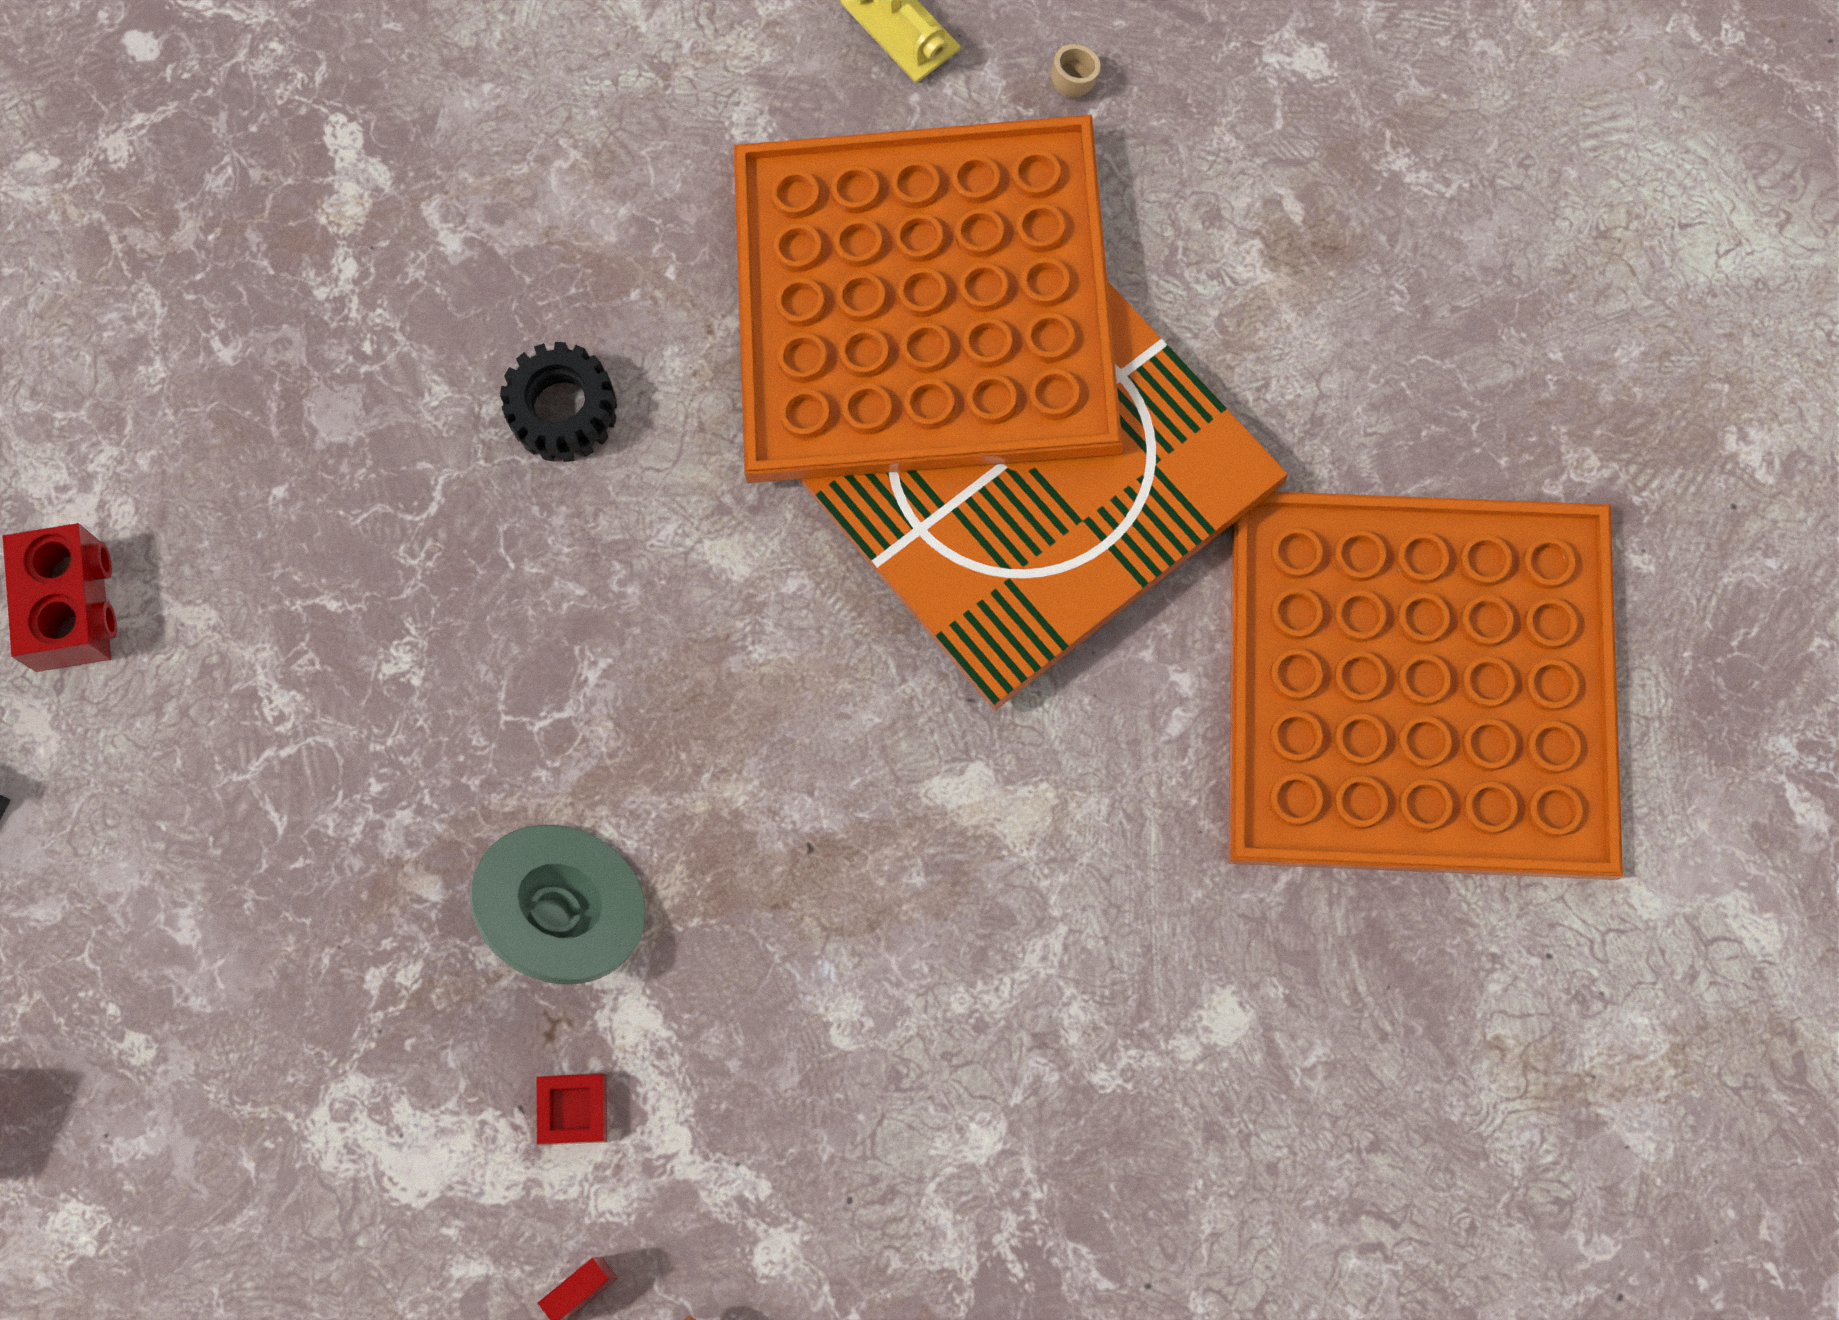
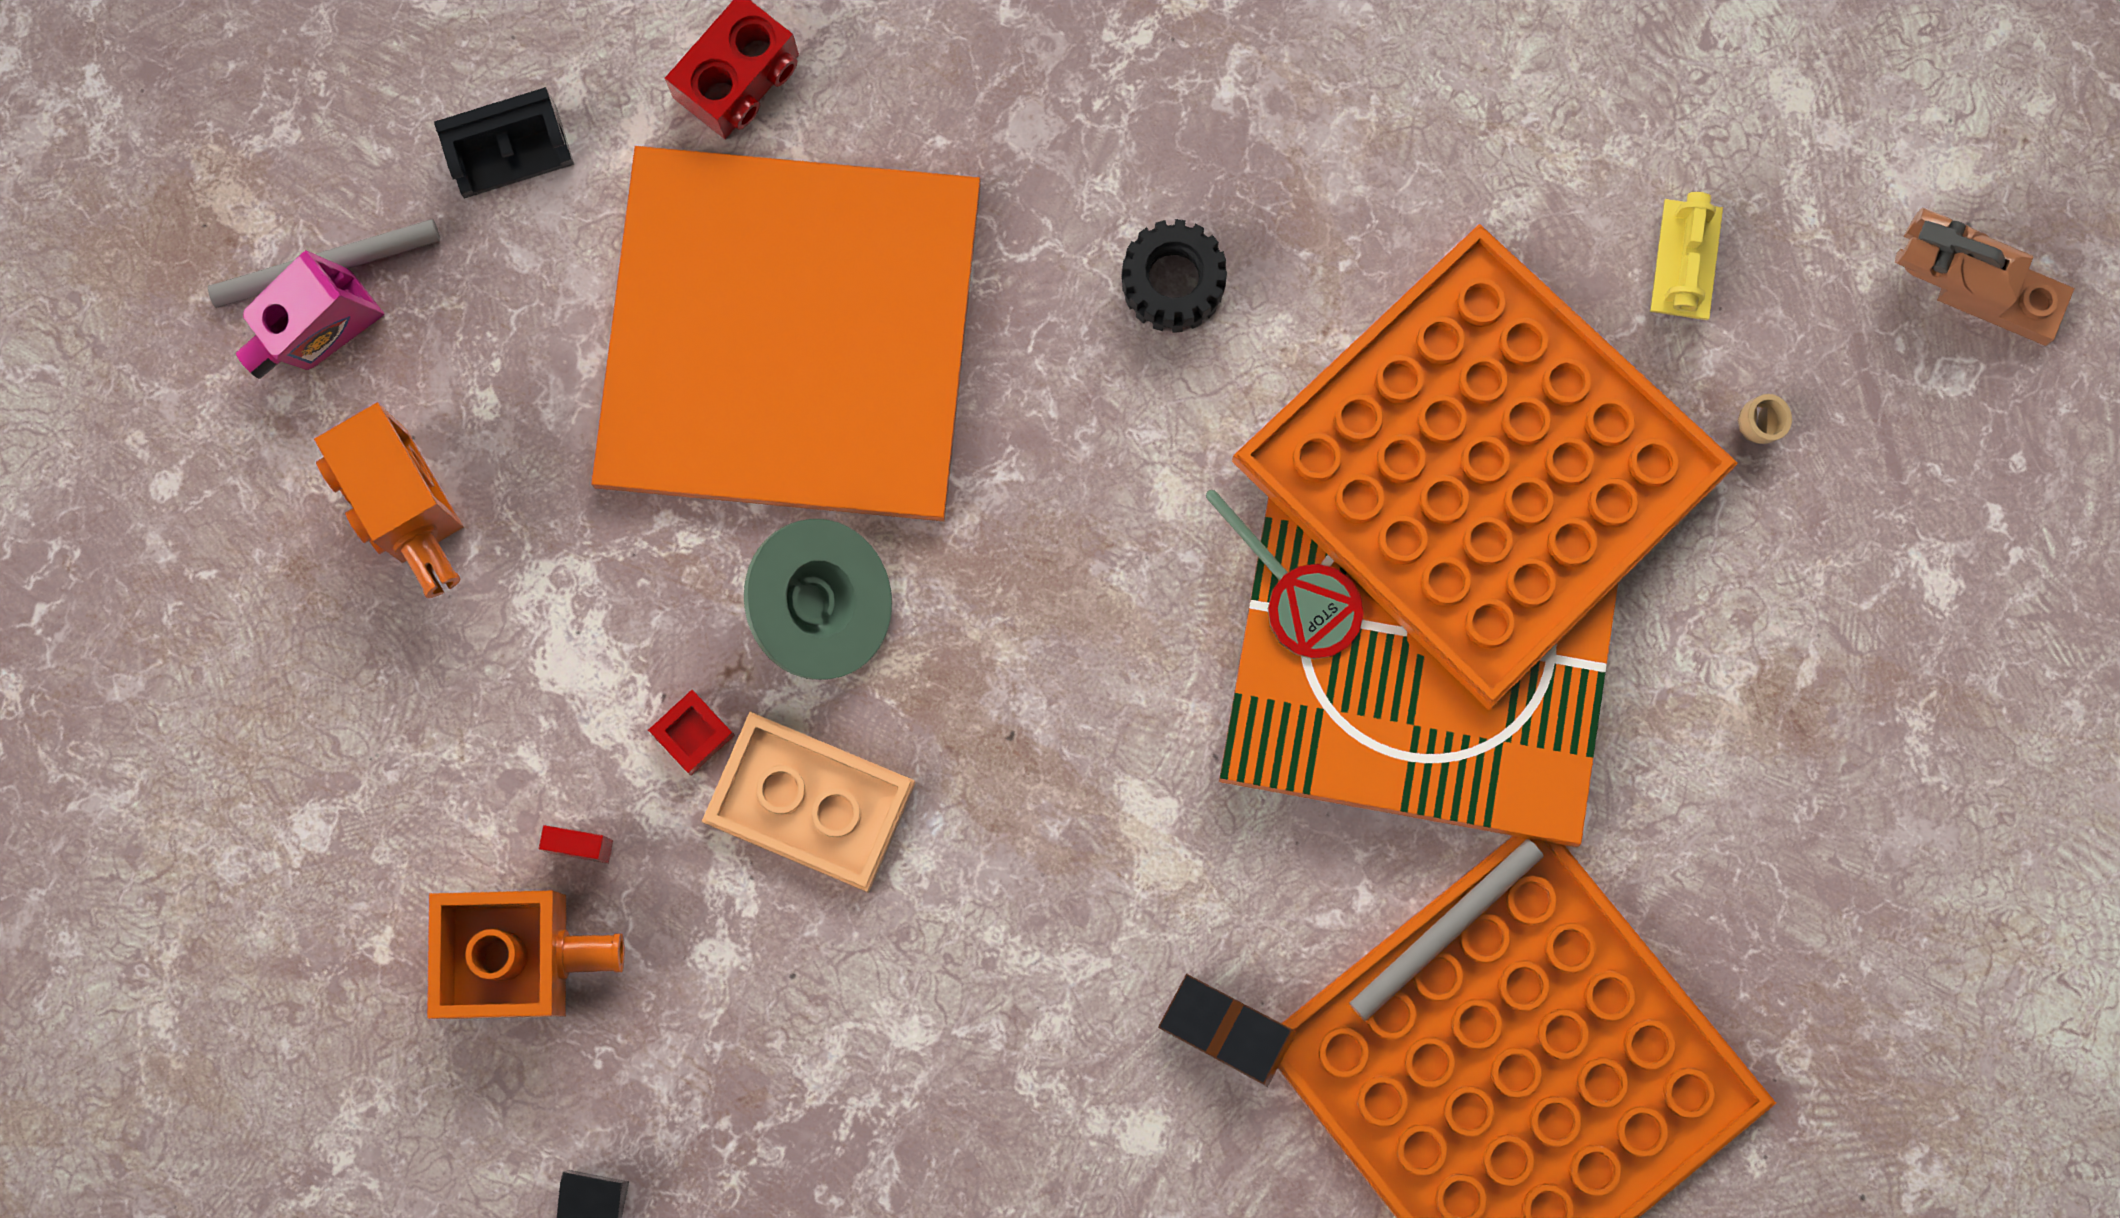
camera: 50 degrees right, 5 degrees up
(135, 1189) = (391, 493): none -> orange brick
(315, 747) = (787, 333): none -> orange tile
(716, 1060) = (809, 802): none -> light nougat tile
(919, 518) = (1311, 608): none -> piece
(1200, 875) = (1227, 1030): none -> black tile
(1266, 635) = (1446, 929): none -> light grey bar

